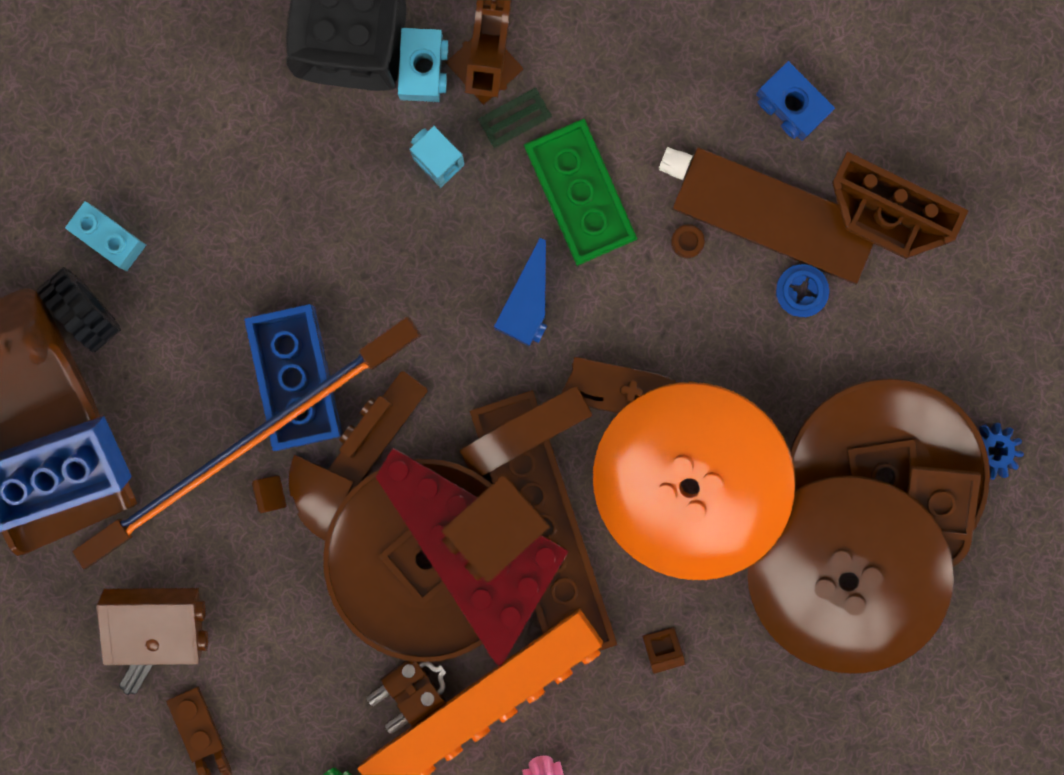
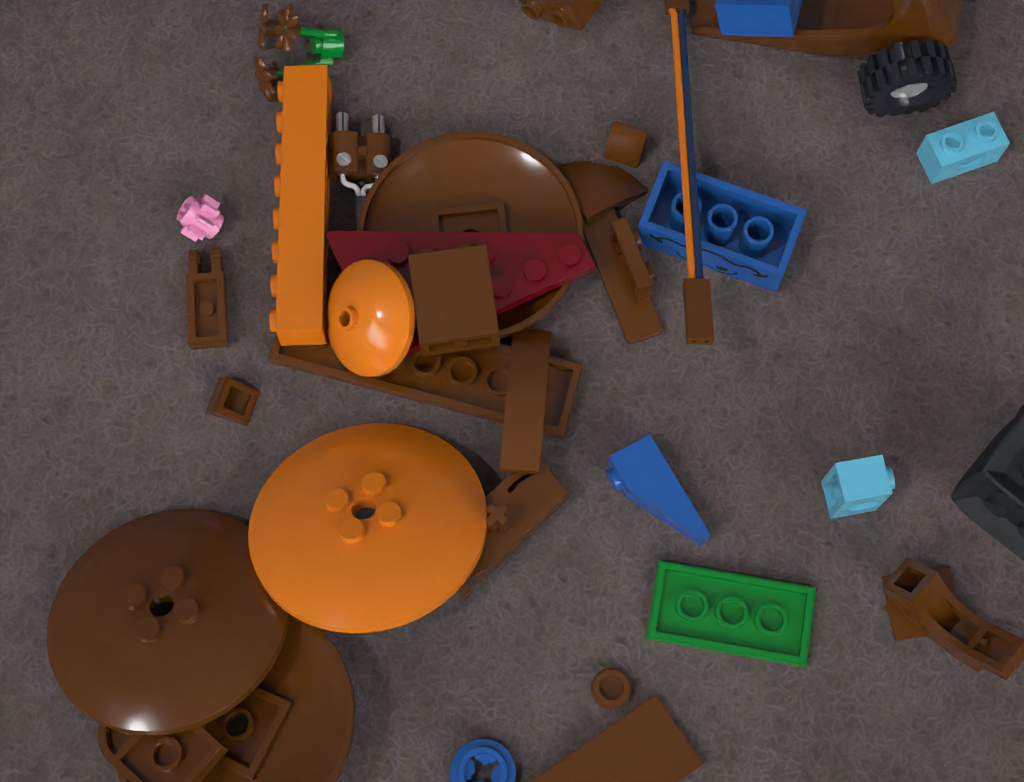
camera: 130 degrees right, 15 degrees down
(419, 45) = (983, 538): medium azure brick -> none
(490, 131) = (850, 564): clear green tile -> none
(546, 583) = (370, 318): none -> orange dish
(603, 724) = (207, 302): none -> reddish brown hinge
(675, 163) = (700, 729): white hose -> none

